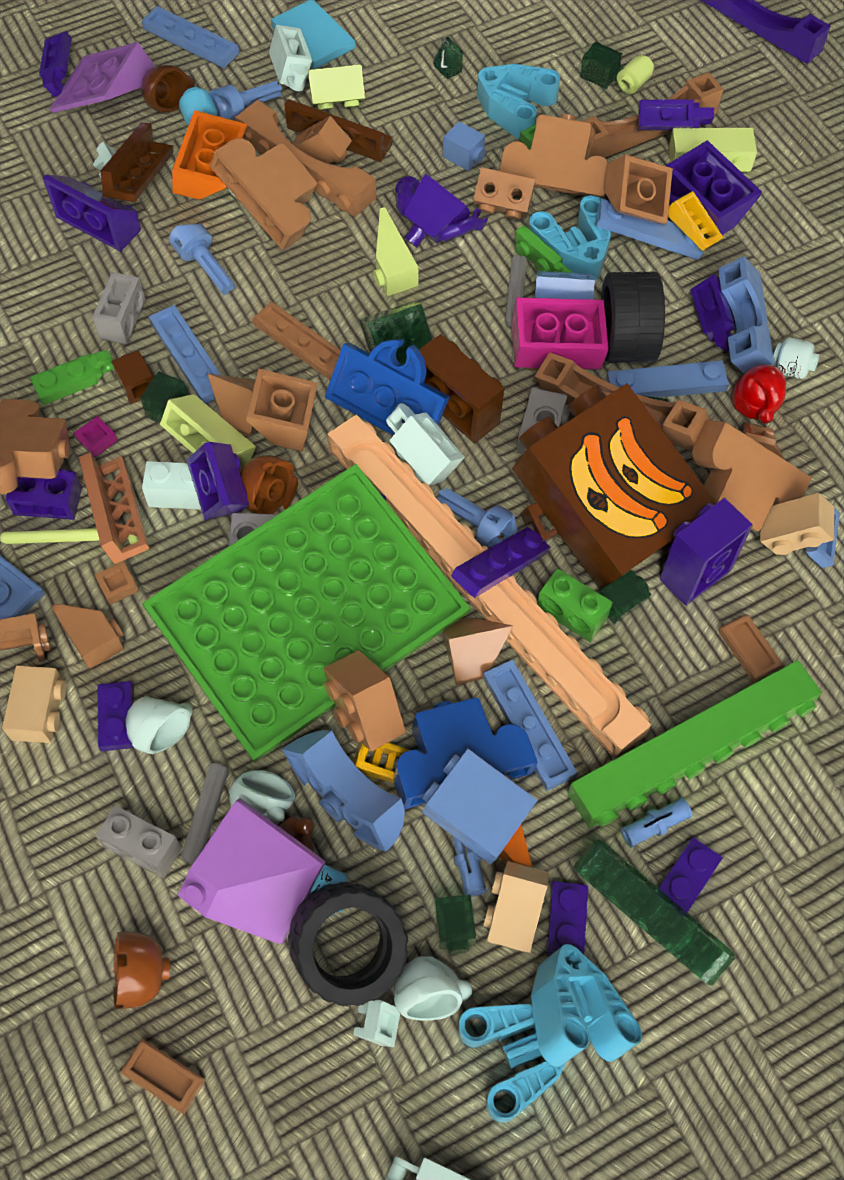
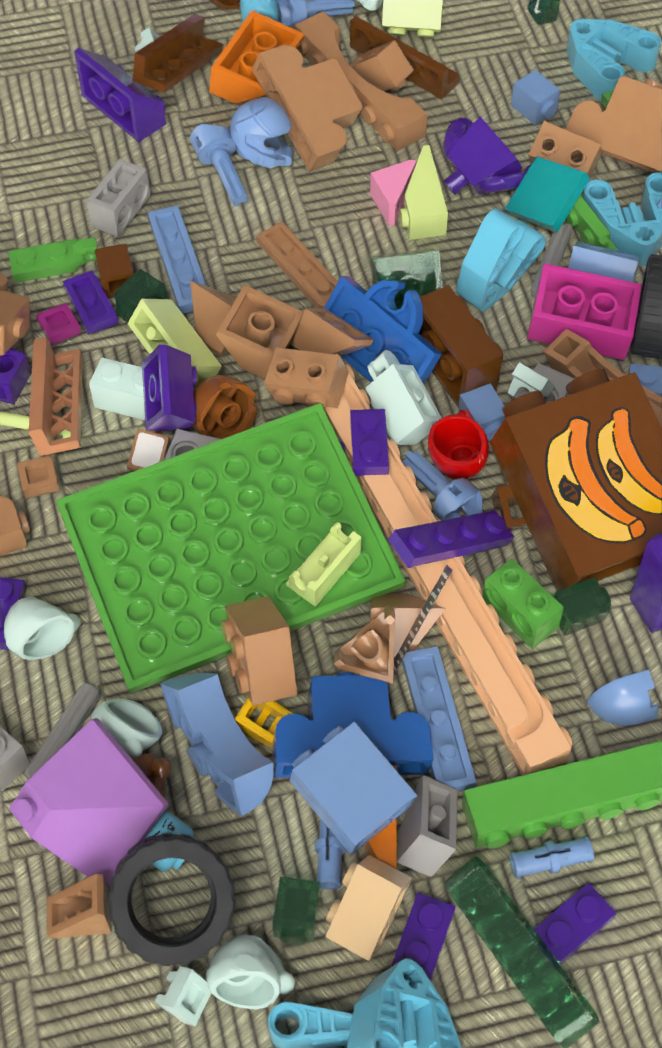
camera: 15 degrees right, 5 degrees down
(119, 410) = (90, 302): none -> dark purple plate
(210, 538) = (147, 449): none -> white slope
(229, 215) = (261, 123): none -> medium blue helmet
(264, 970) = (79, 909): none -> medium nougat slope
(336, 443) = (306, 377): none -> medium nougat brick
(341, 399) = (328, 333): none -> medium nougat slope
(360, 253) = (389, 189): none -> bright pink slope
(398, 609) = (325, 565): none -> yellowish green hinge
(406, 489) = (369, 442): none -> dark purple plate
(458, 676) = (371, 648): none -> medium nougat slope
(473, 300) = (497, 259): none -> medium azure connector
(484, 476) = (458, 445): none -> red piece
(493, 644) = (421, 617): none -> dark grey sticker
(495, 443) = (485, 408): none -> medium blue brick
(498, 232) = (547, 193): none -> teal tile
(530, 405) = (528, 379): none -> light aqua tile
(550, 824) = (428, 827): none -> light grey slope
(681, 670) = (625, 700): none -> medium blue brick

